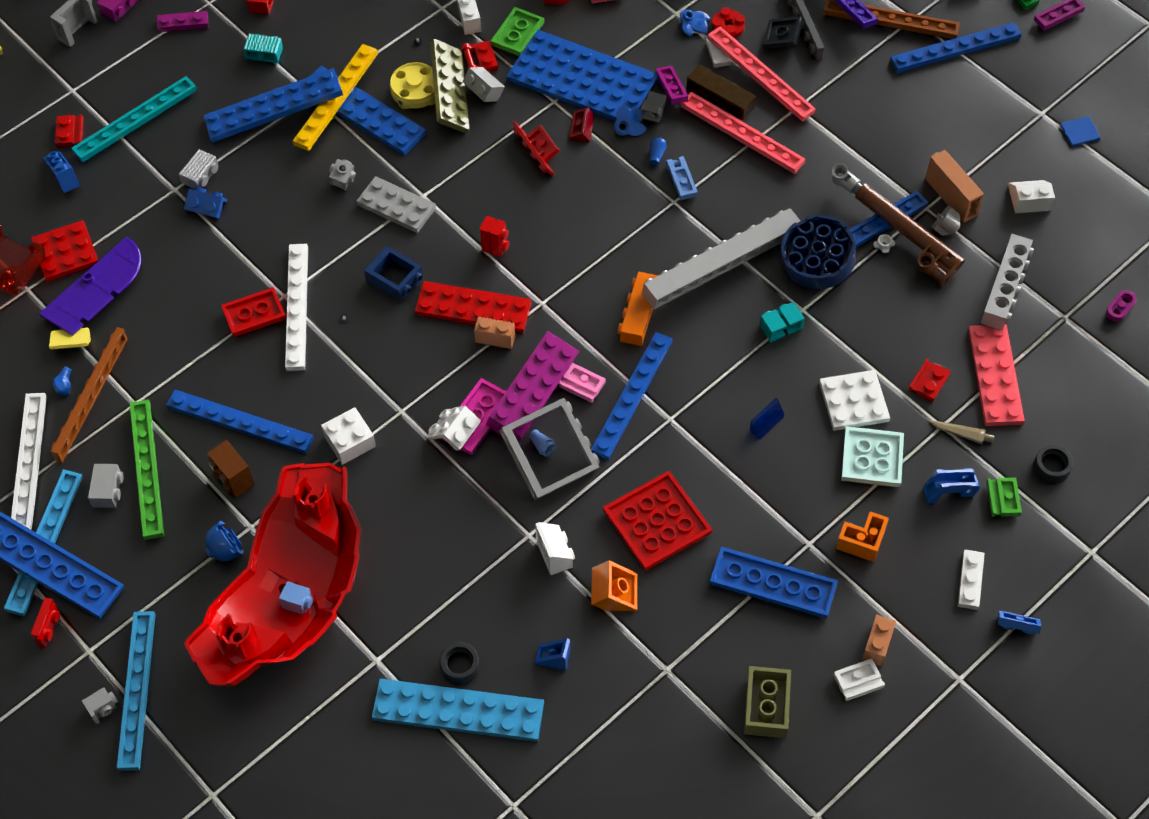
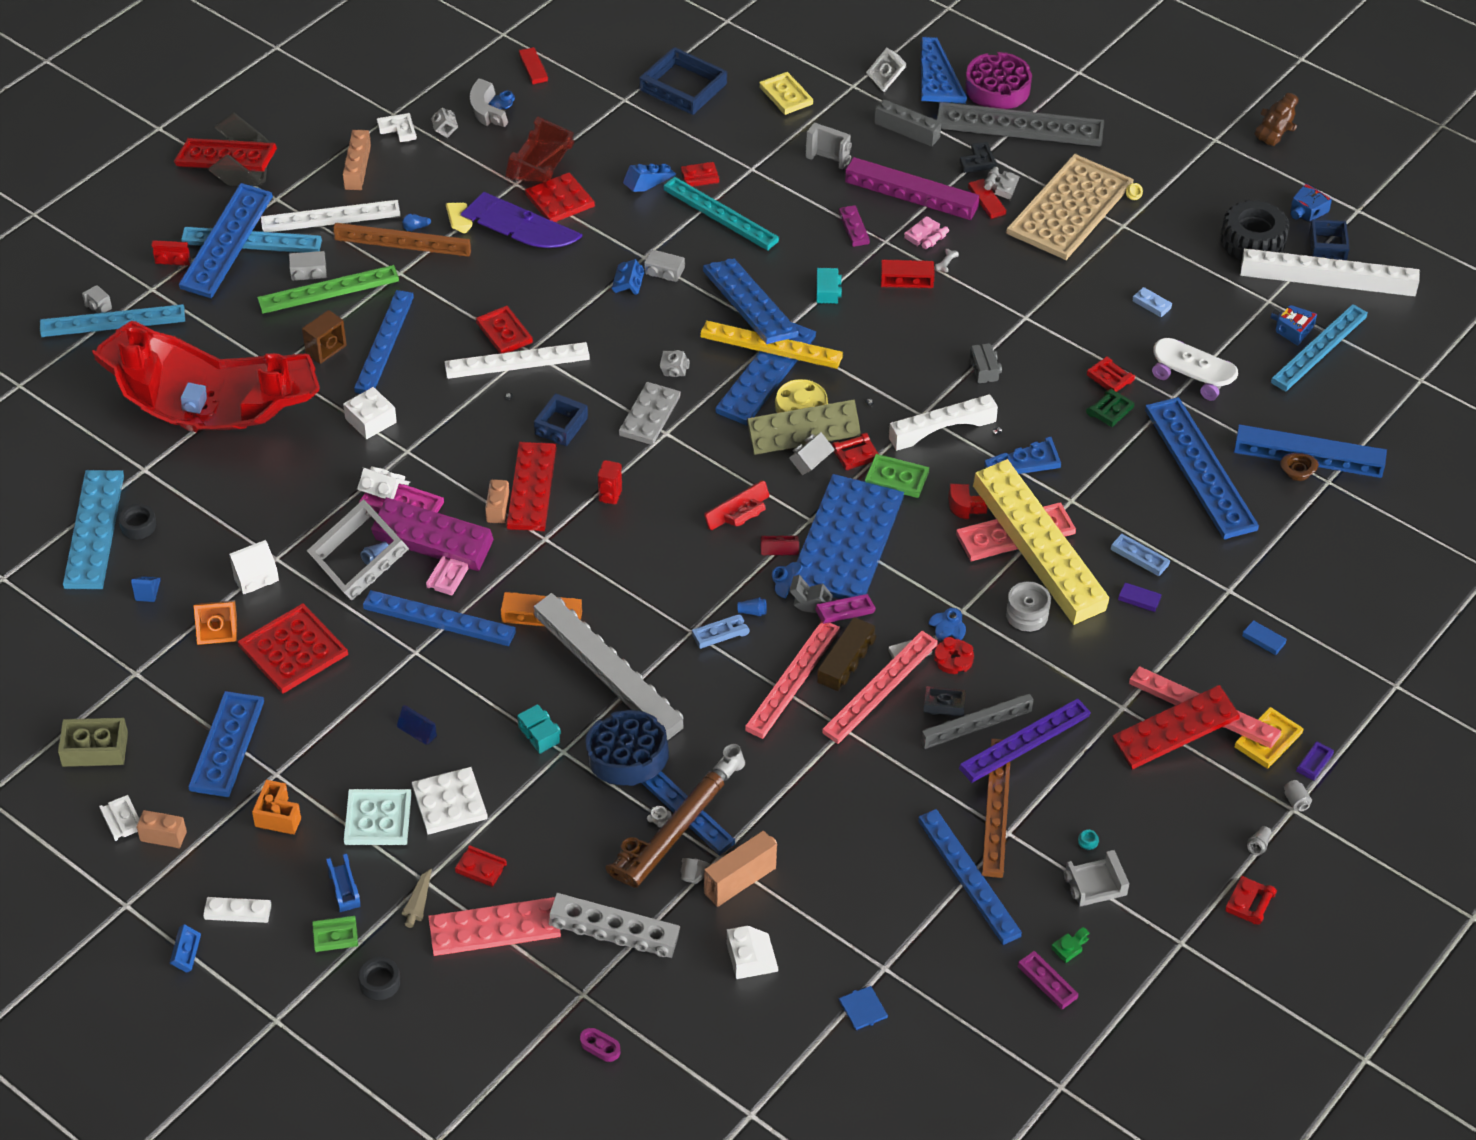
camera: 80 degrees right, 10 degrees down
(222, 543) = (251, 344): blue cylinder -> none

